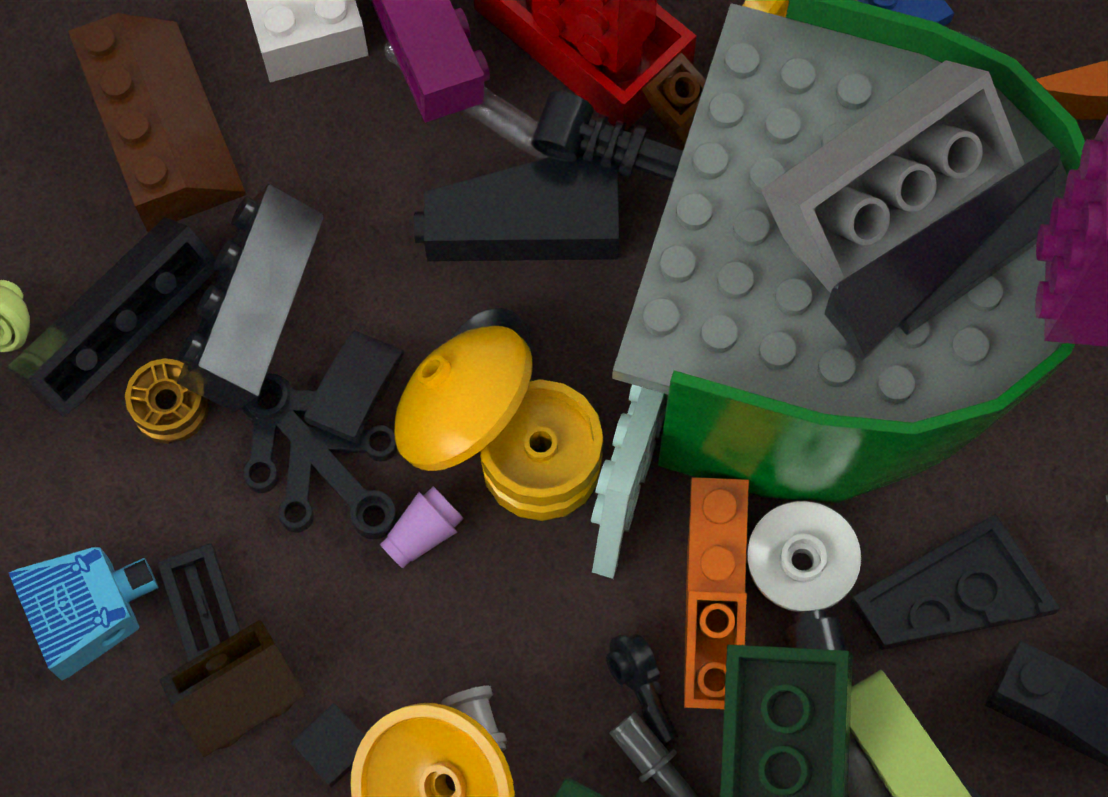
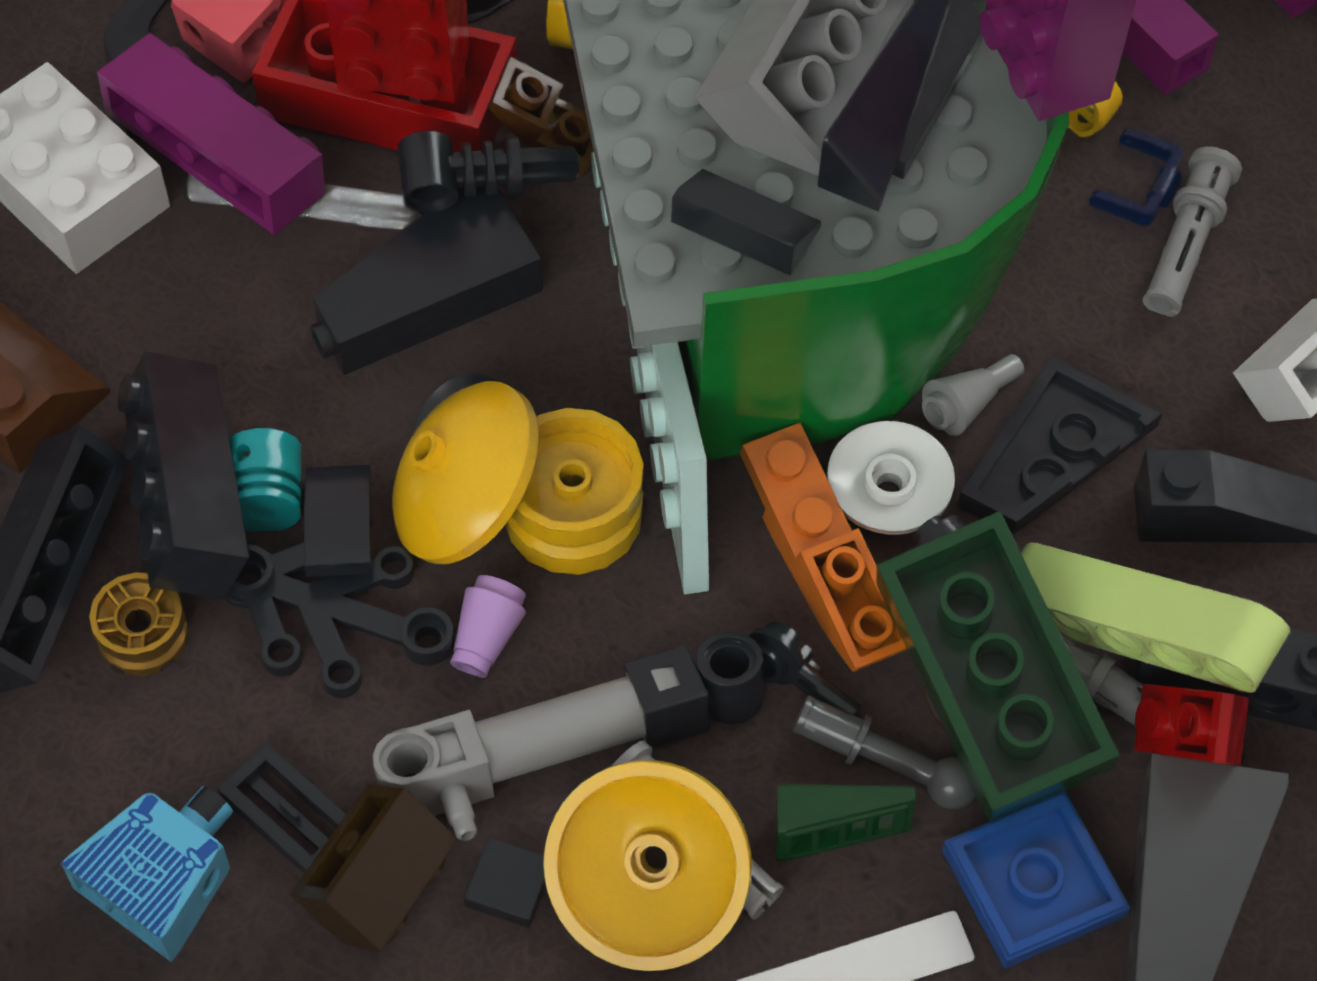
camera: 30 degrees left, 10 degrees down
(315, 326) = (267, 478): none -> teal piece
(514, 655) = (657, 700): none -> light grey piece
(750, 314) = (743, 220): none -> black slope
(899, 513) = (958, 399): none -> light grey cone

